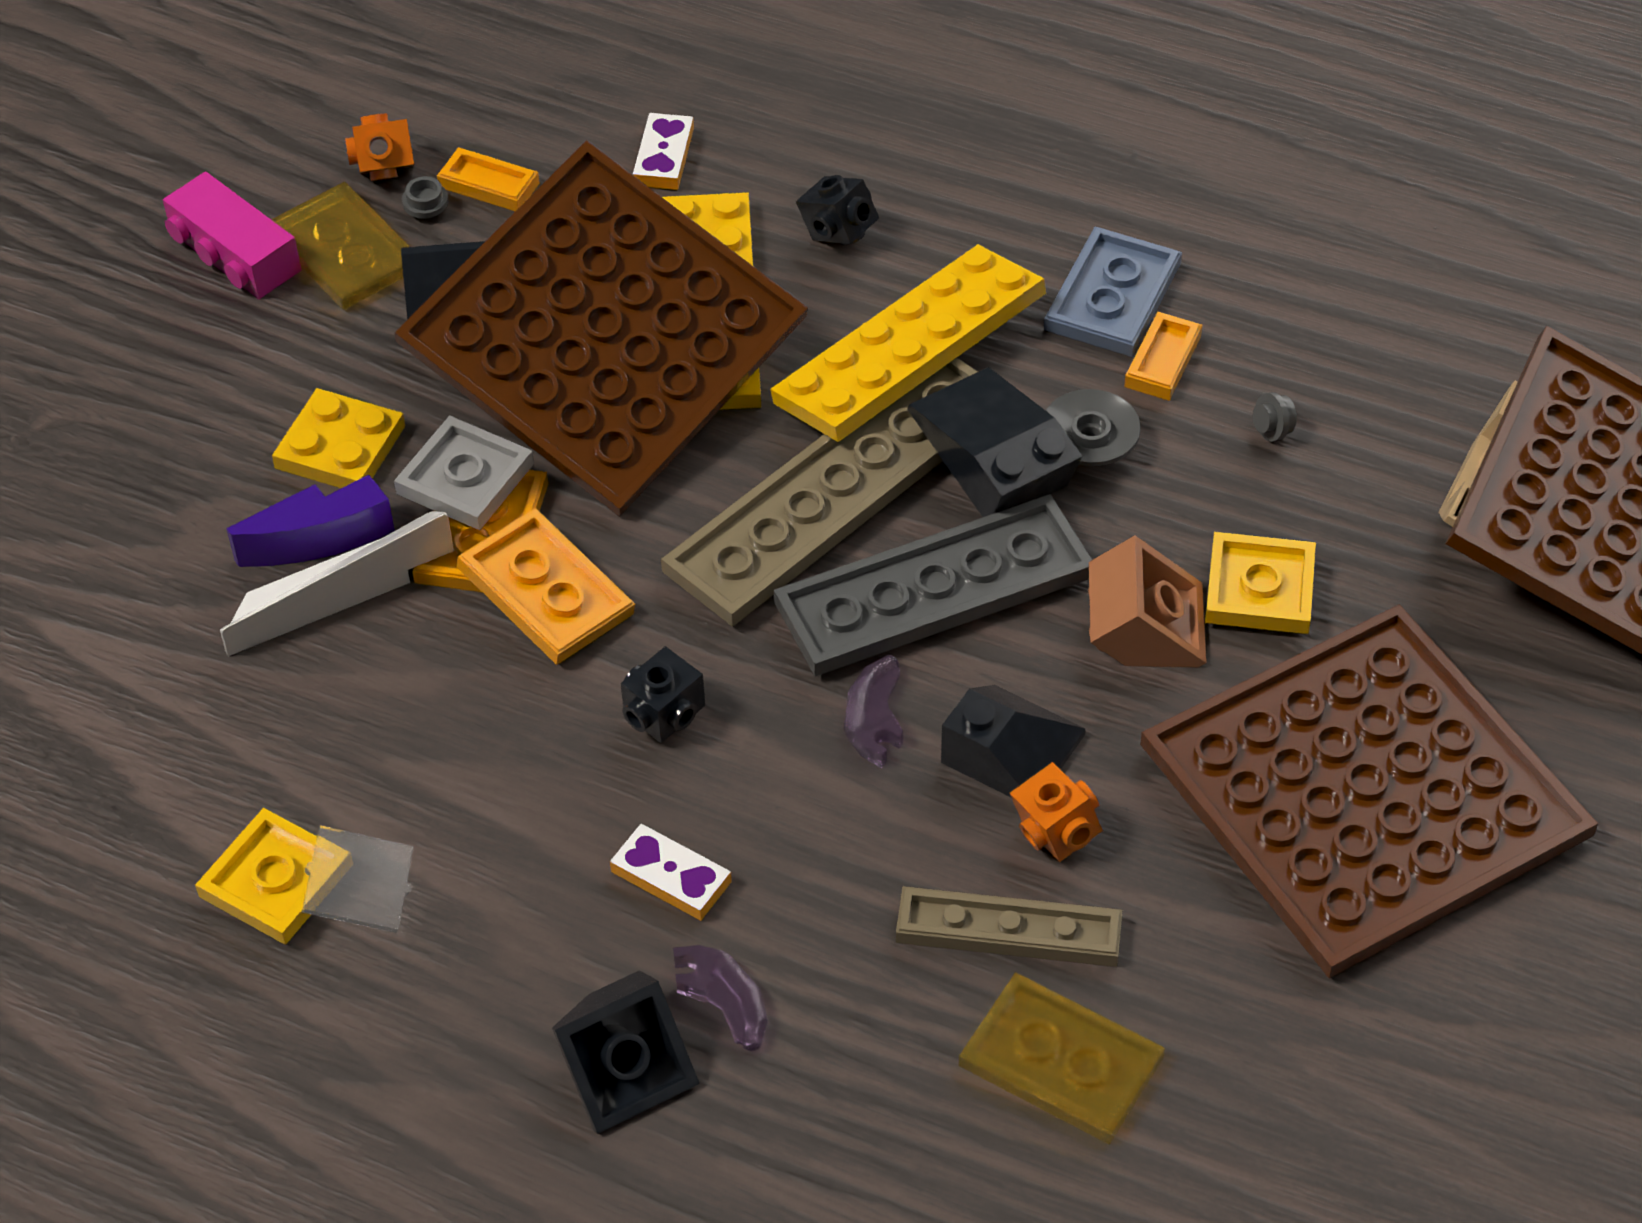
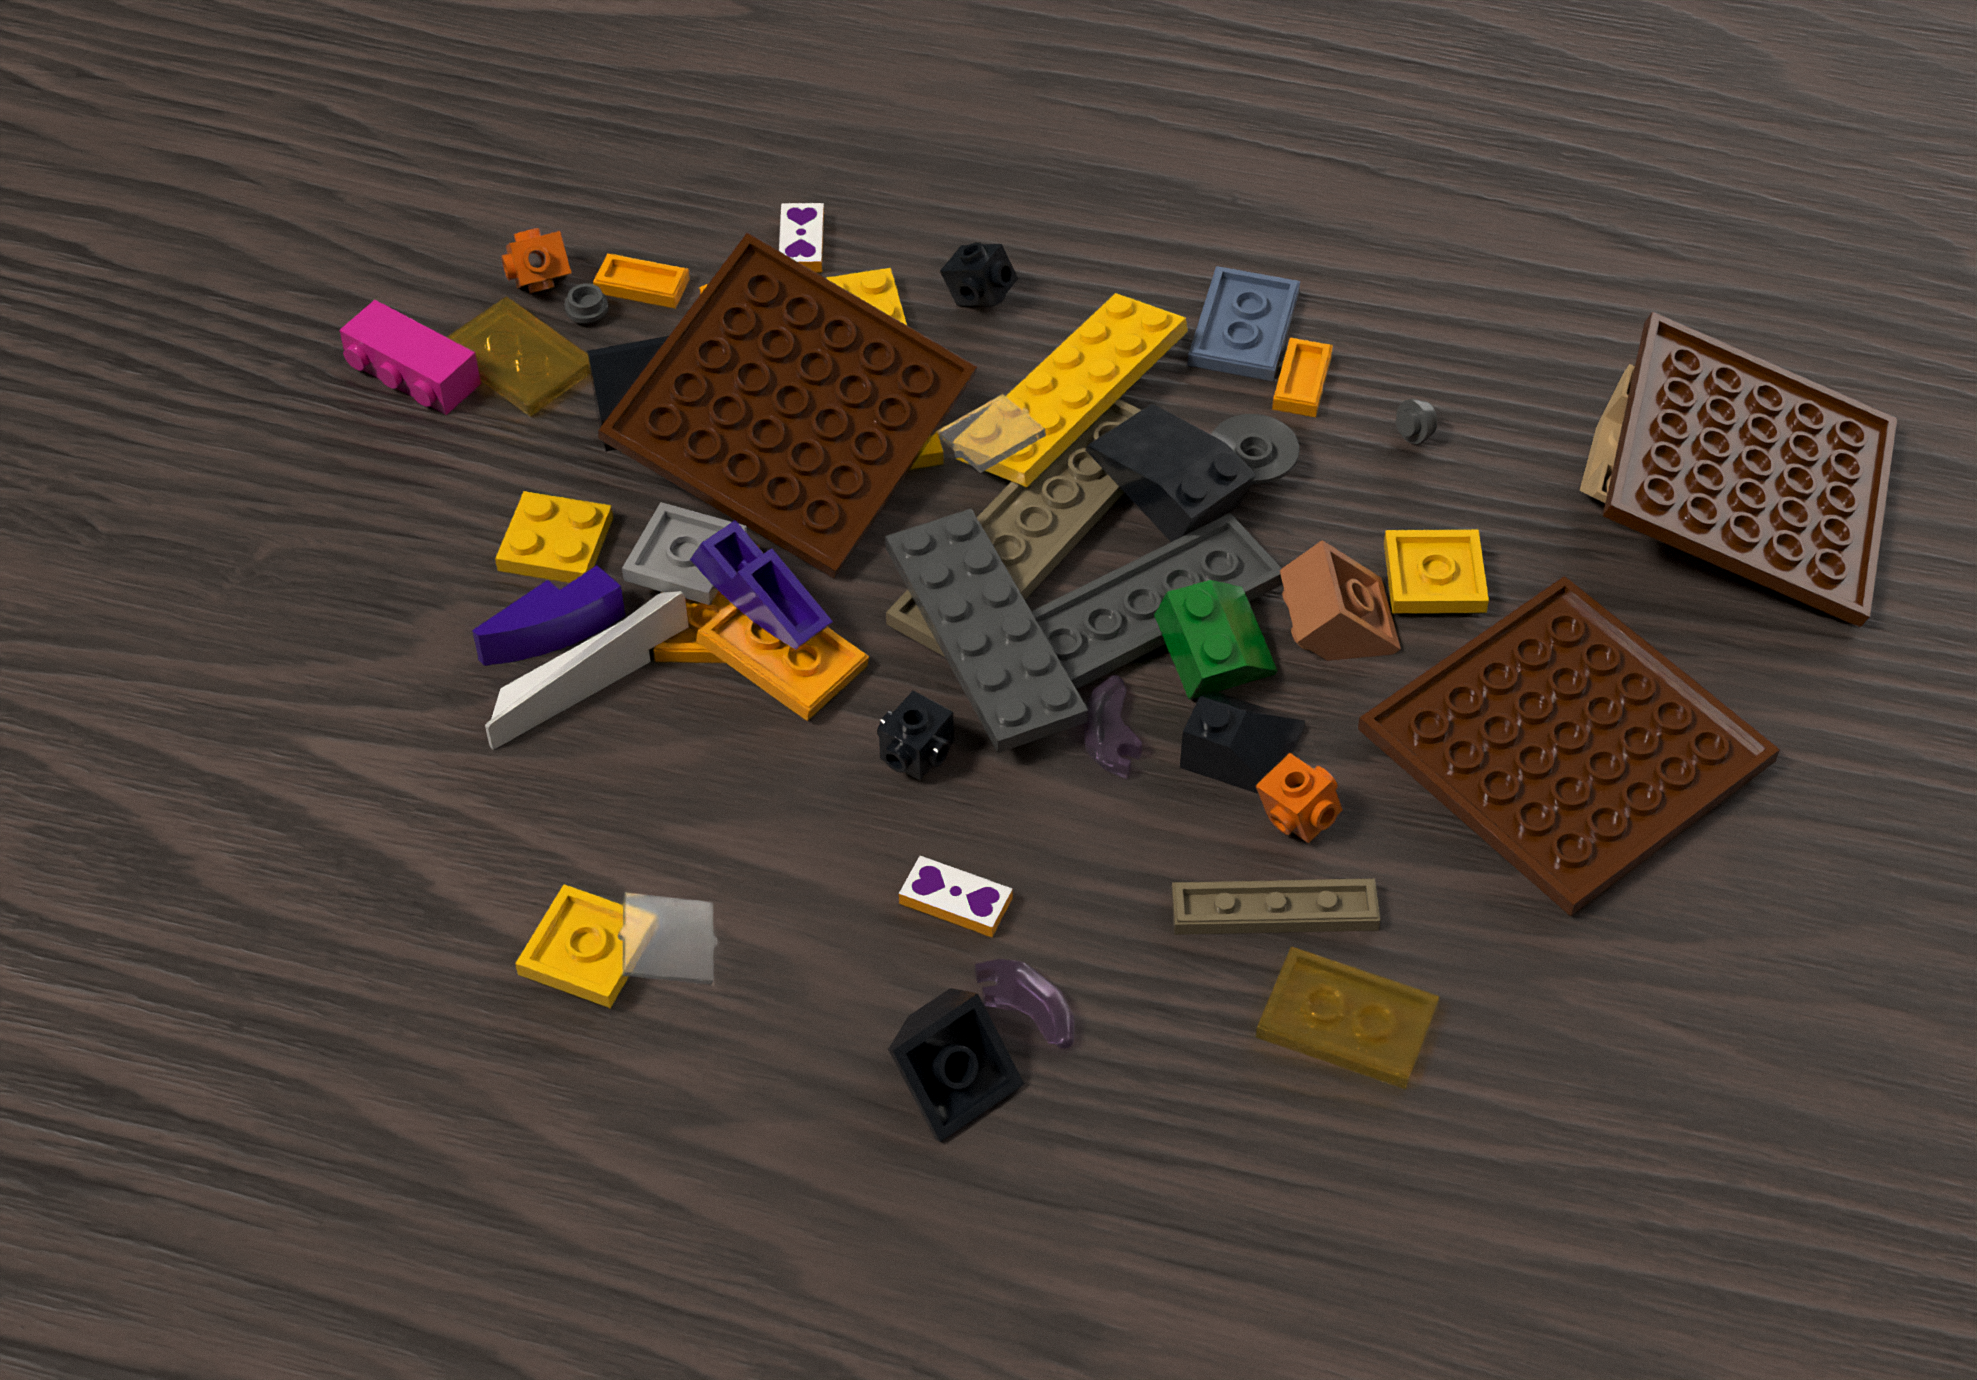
camera: 10 degrees left, 0 degrees up
(530, 516) = (760, 586): none -> dark purple slope
(760, 591) = (986, 630): none -> dark grey plate
(810, 380) = (991, 433): none -> clear piece
(1002, 626) = (1213, 637): none -> green slope

